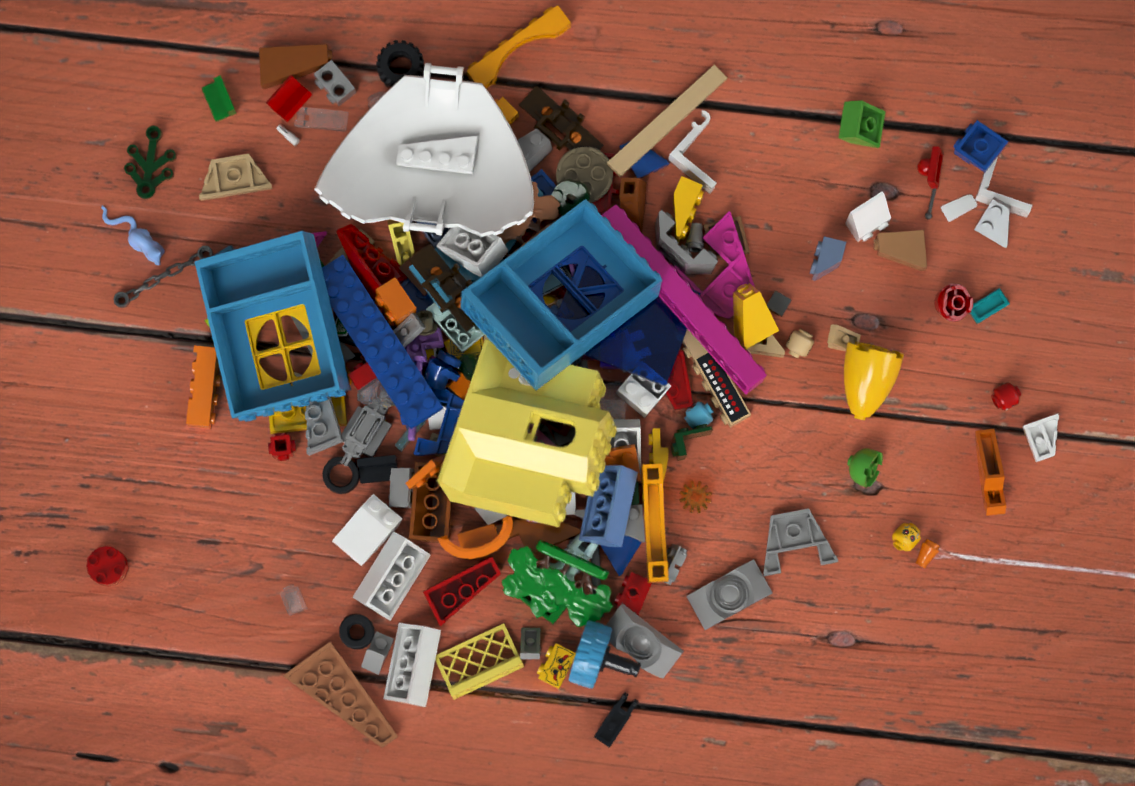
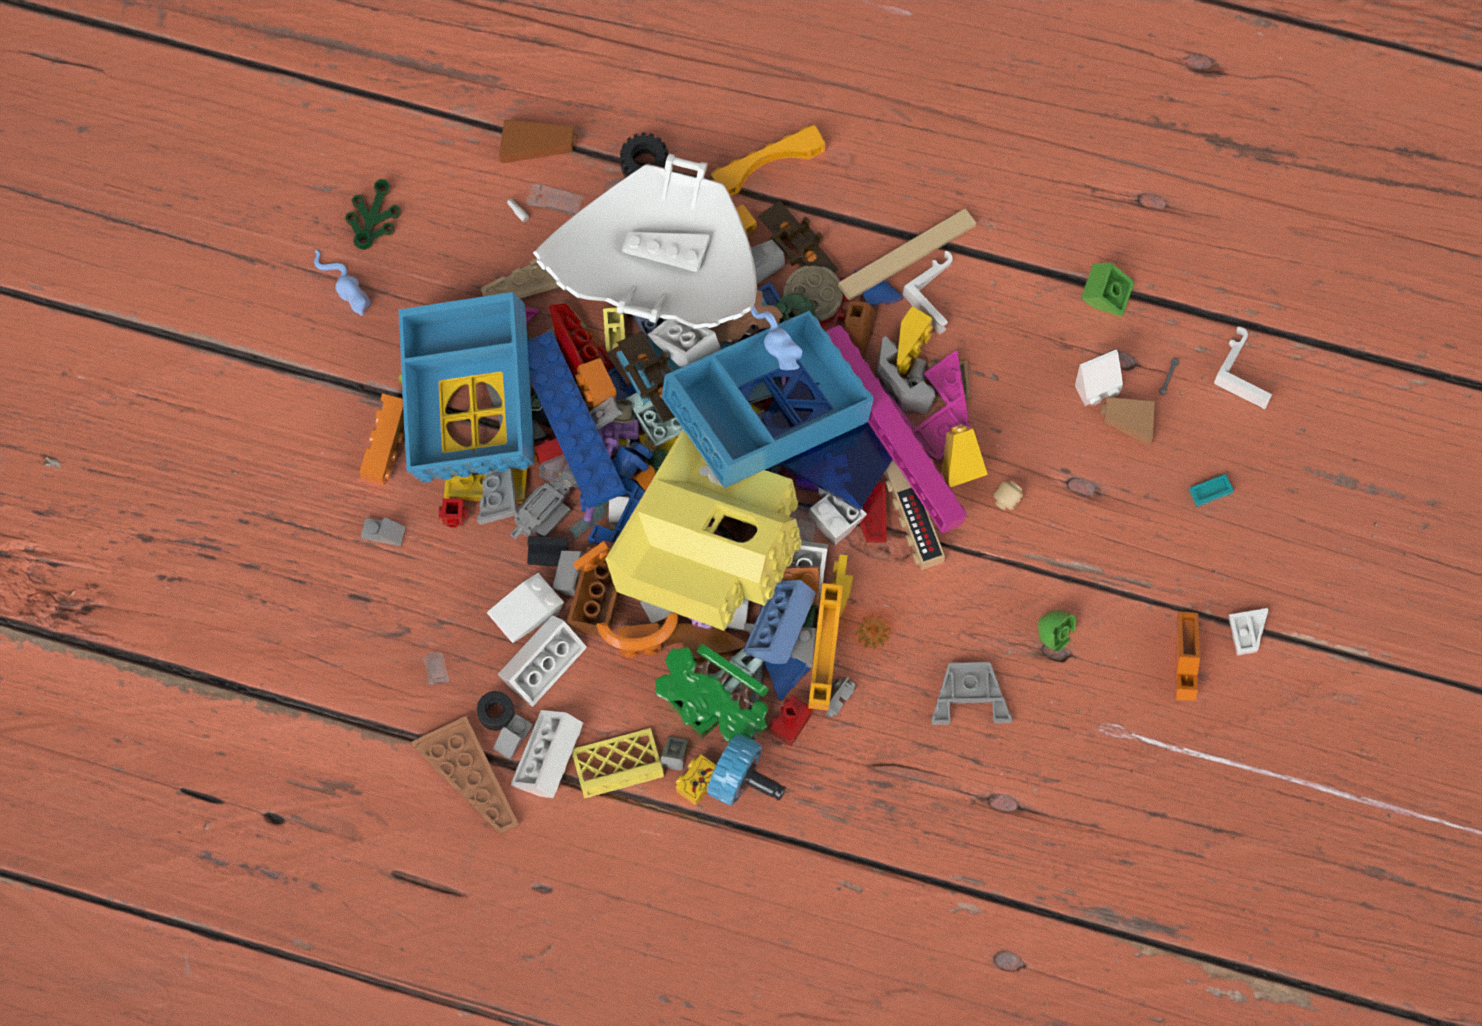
camera: 10 degrees right, 10 degrees down
(107, 566) = (250, 602): red brick -> none
(117, 296) = (319, 338): dark grey piece -> none
(218, 99) = (454, 165): green panel -> none
(219, 475) = (383, 531): none -> light grey slope
(233, 177) = (454, 242): tan wing -> none
(288, 98) = (524, 173): red panel -> none
(299, 212) = (522, 282): none -> tan wing
(337, 81) = (577, 165): light grey brick -> none
(343, 489) = (508, 566): black tyre -> none
(456, 591) = (607, 685): red wedge -> none
(564, 240) = (779, 343): none -> light blue animal
(614, 722) = (749, 847): black hinge -> none
(642, 642) = (793, 768): light grey slope -> none
(678, 447) = (873, 566): dark green bracket -> none
(699, 414) = (890, 550): medium azure head -> none
(729, 594) = (891, 737): light grey slope -> none
(771, 348) = (976, 496): tan slope -> none
(778, 303) = (992, 453): dark grey tile -> none
(829, 257) = (1050, 413): sand blue slope -> none
(840, 336) = (1053, 498): tan slope -> none
(869, 376) = (1074, 538): yellow cylinder -> none
(906, 537) = (1087, 707): yellow head -> none
(927, 553) = (1108, 727): orange cone -> none
(932, 167) = (1174, 342): red tile -> none
(953, 302) = (1175, 478): red cone -> none
(958, 207) = (1195, 388): white sticker -> none
(979, 146) = (1226, 328): blue plate -> none
(995, 222) = (1231, 406): wing -> none
(1006, 396) = (1215, 582): red head -> none

